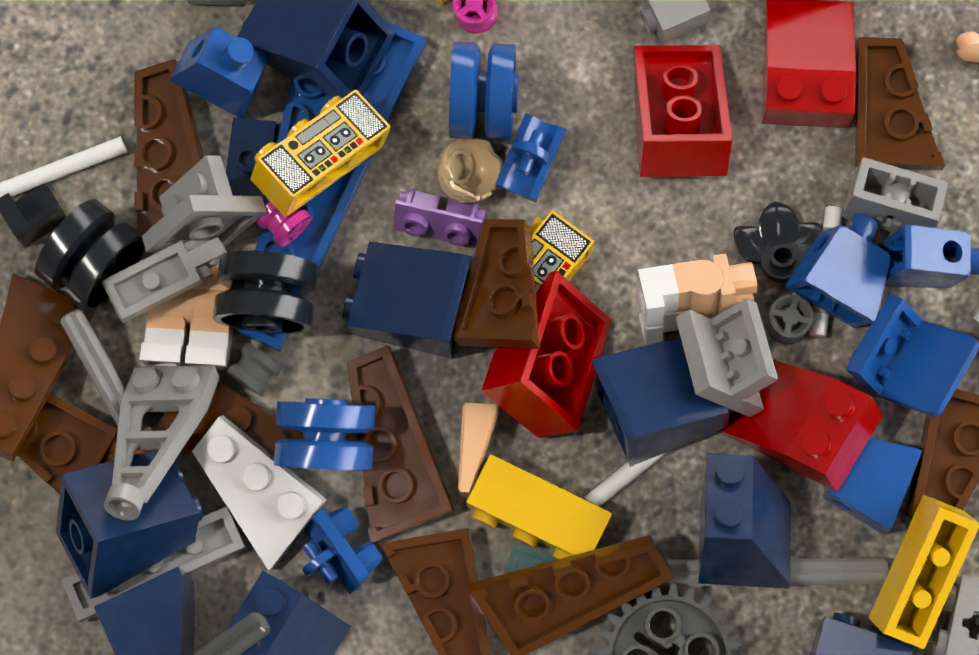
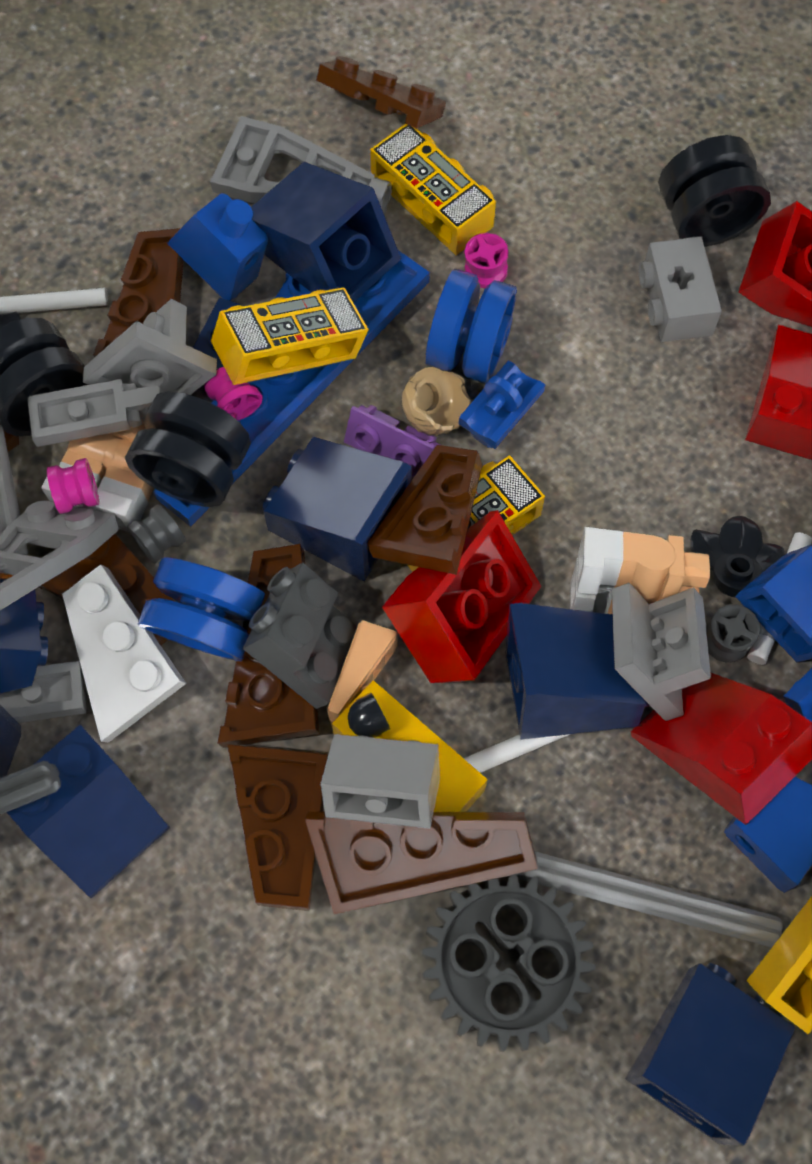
camera: 10 degrees right, 10 degrees down
(172, 354) = (72, 486): none -> dark pink wheel
(333, 555) = (176, 721): blue hips -> none
(418, 431) = (301, 634): none -> dark grey plate
(496, 491) = (367, 718): none -> black hinge
(525, 543) = (381, 780): none -> light grey brick
(681, 111) = (667, 405): red slope -> none
(743, 525) = (630, 831): dark blue slope -> none

